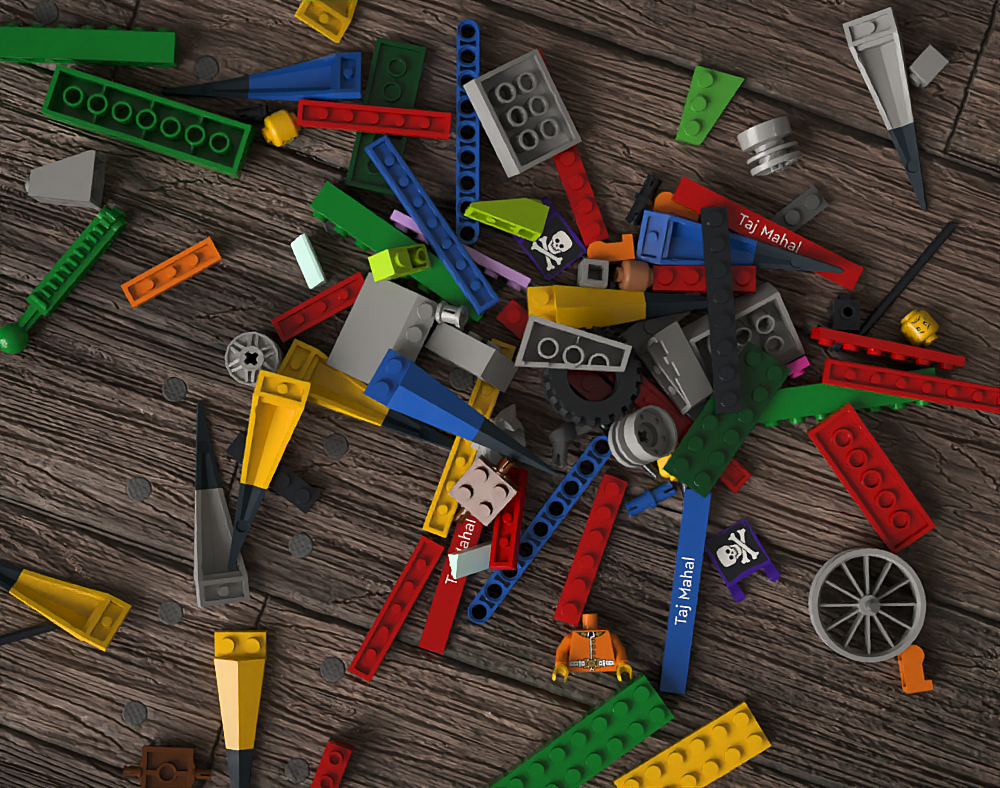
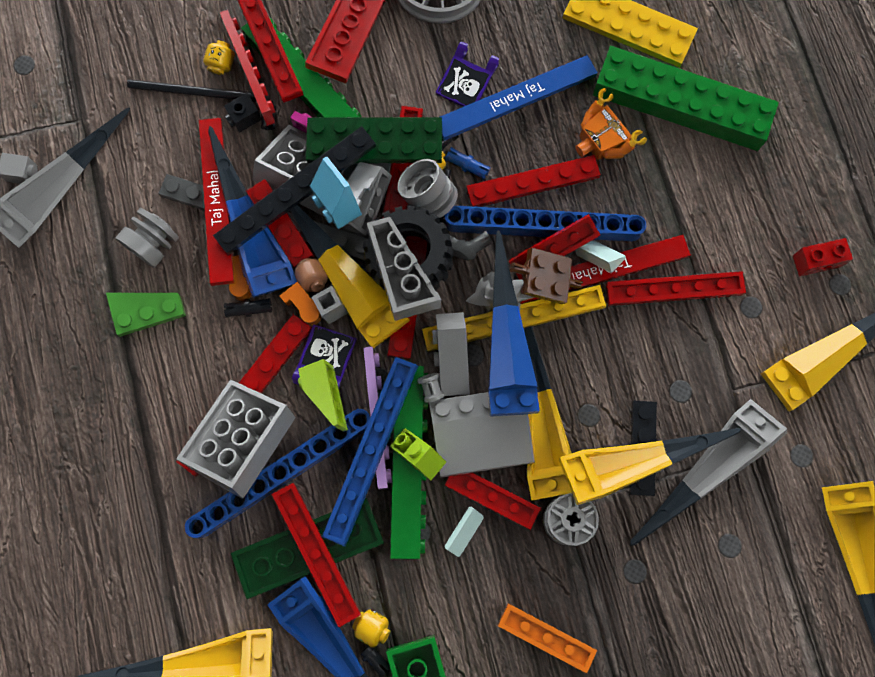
camera: 125 degrees left, 10 degrees down
(685, 337) = (334, 195): none -> medium azure slope

